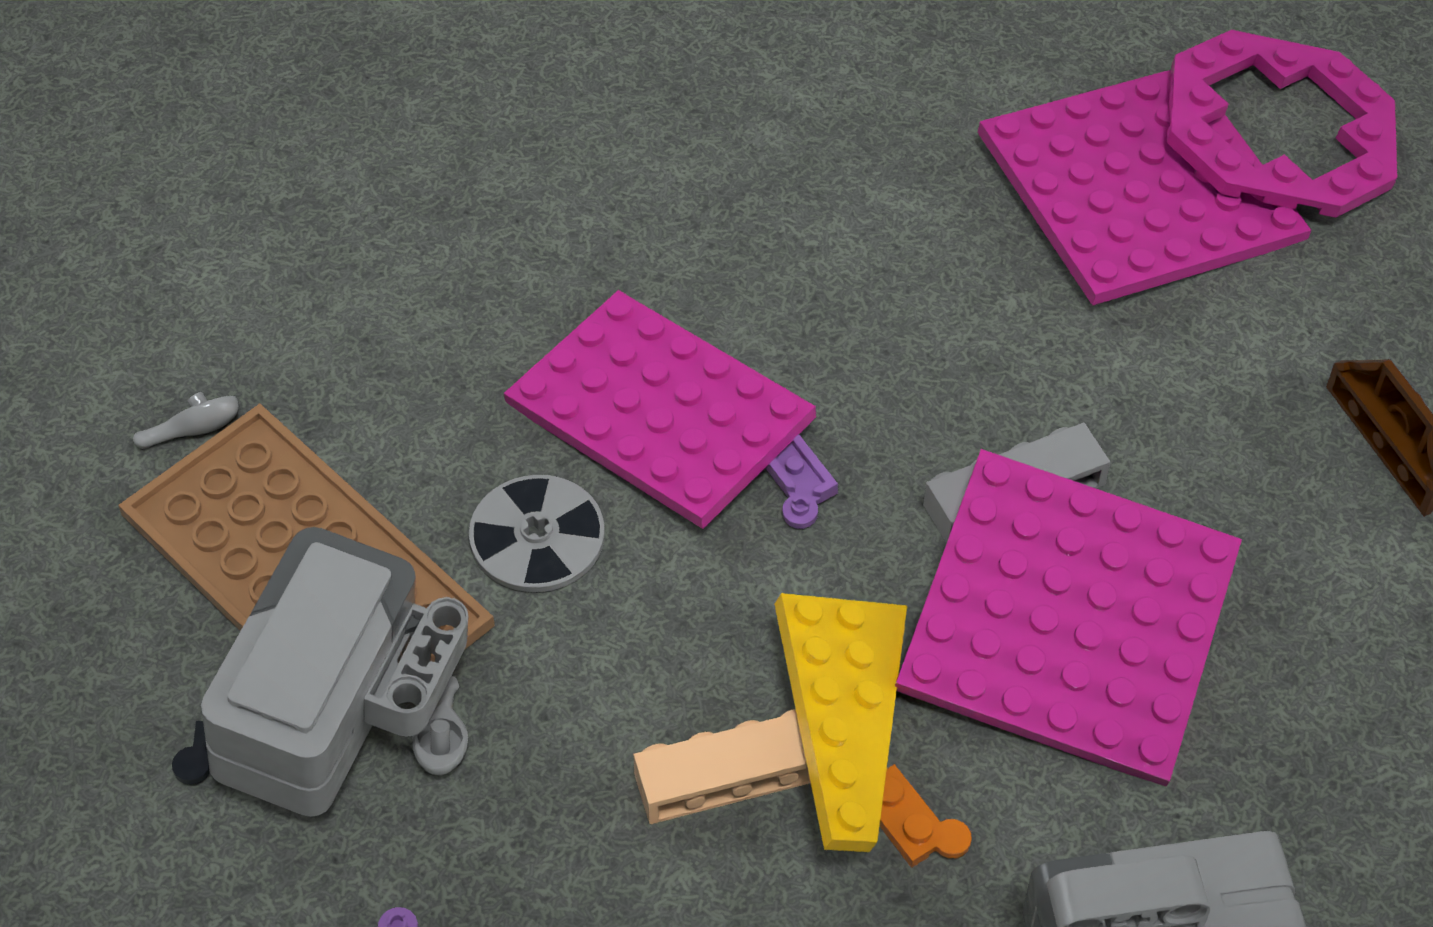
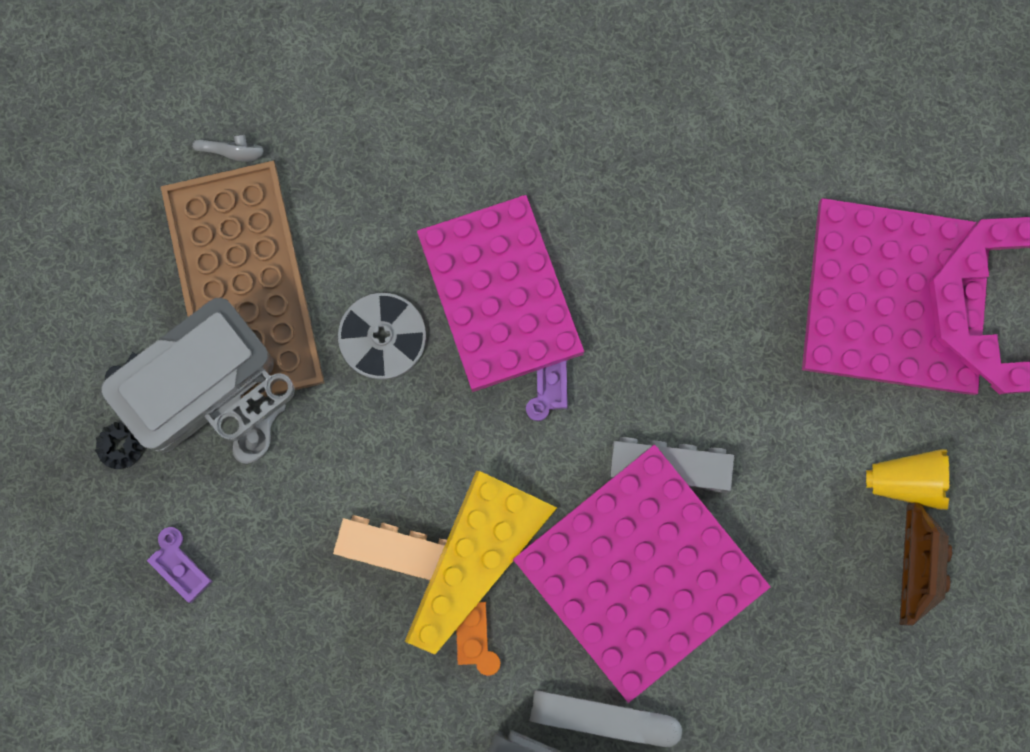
camera: 30 degrees right, 25 degrees up
(255, 866) = (118, 459): none -> black gear
(1158, 812) = (605, 719): none -> light grey piece
(1313, 341) = (913, 479): none -> yellow cone

